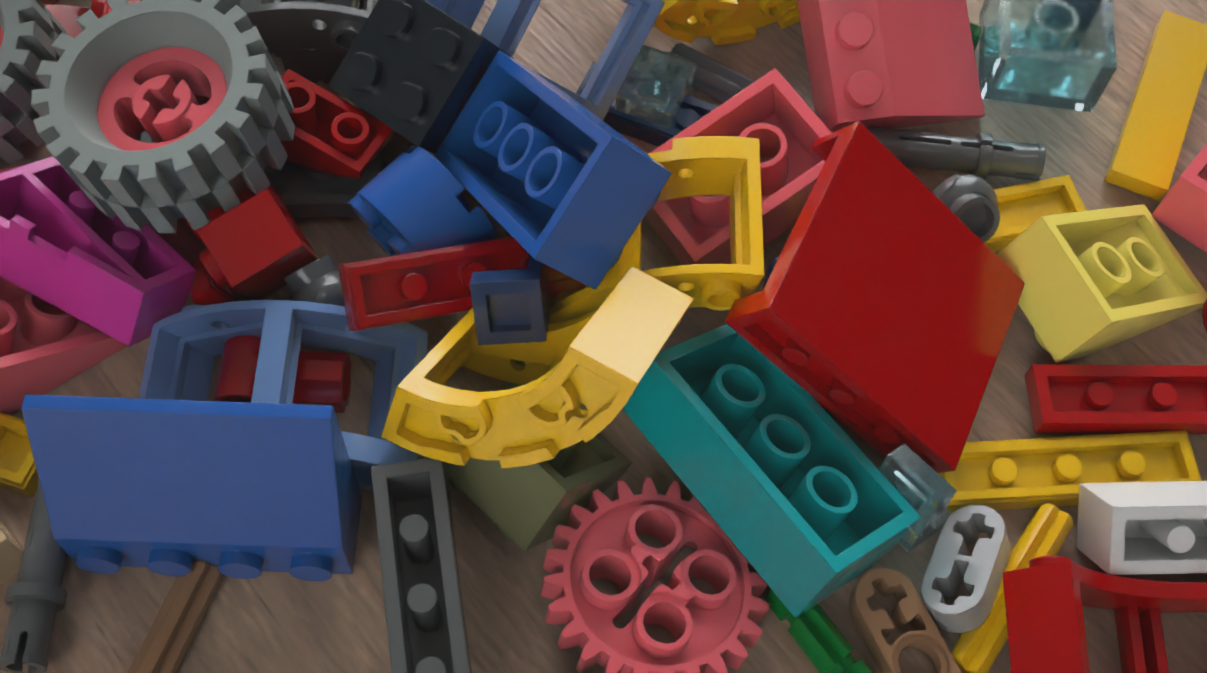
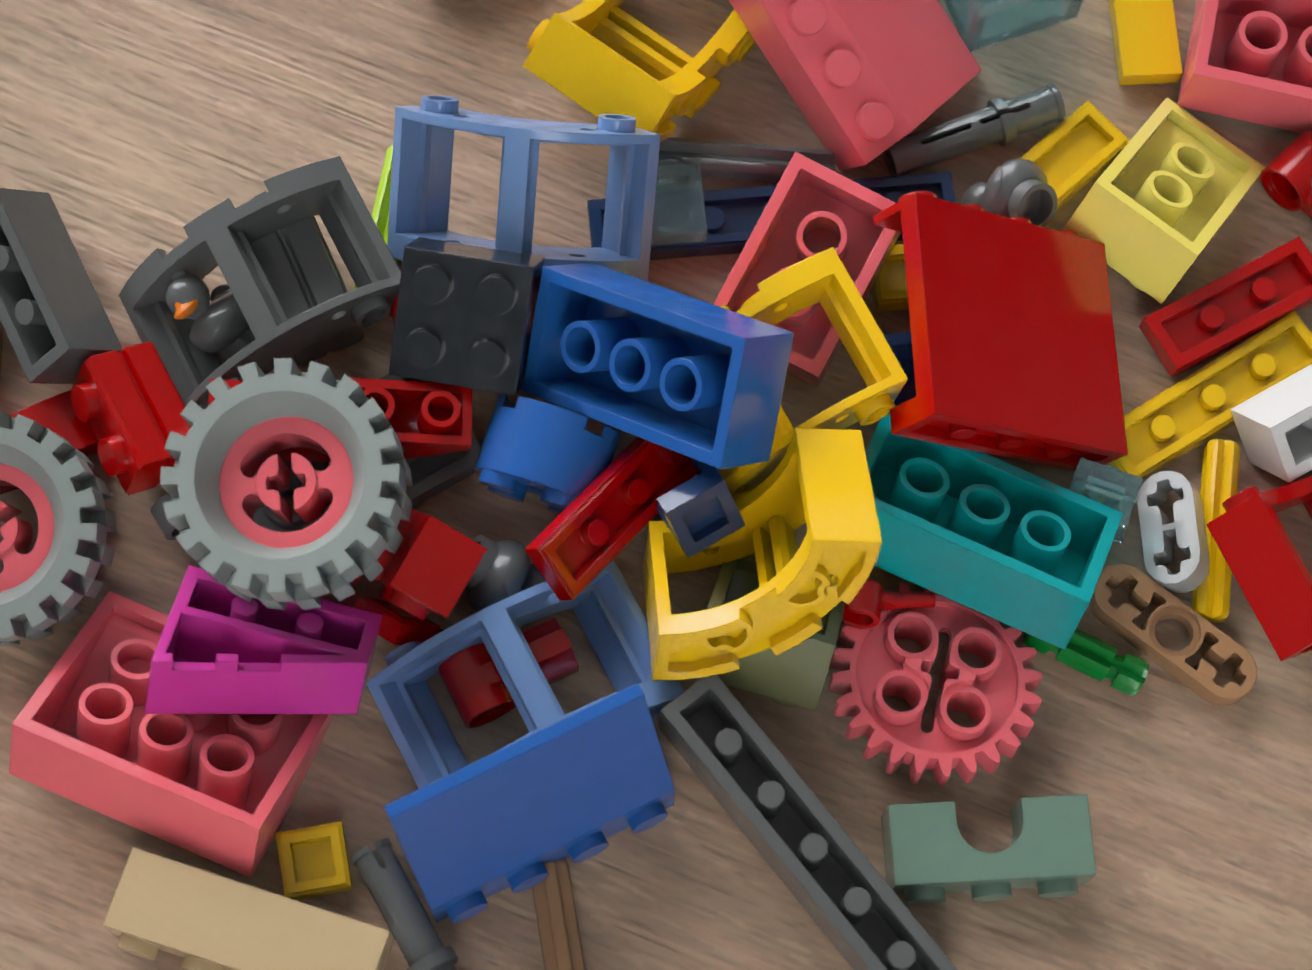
camera: 30 degrees left, 10 degrees up
(631, 472) = (867, 604): none -> red hand

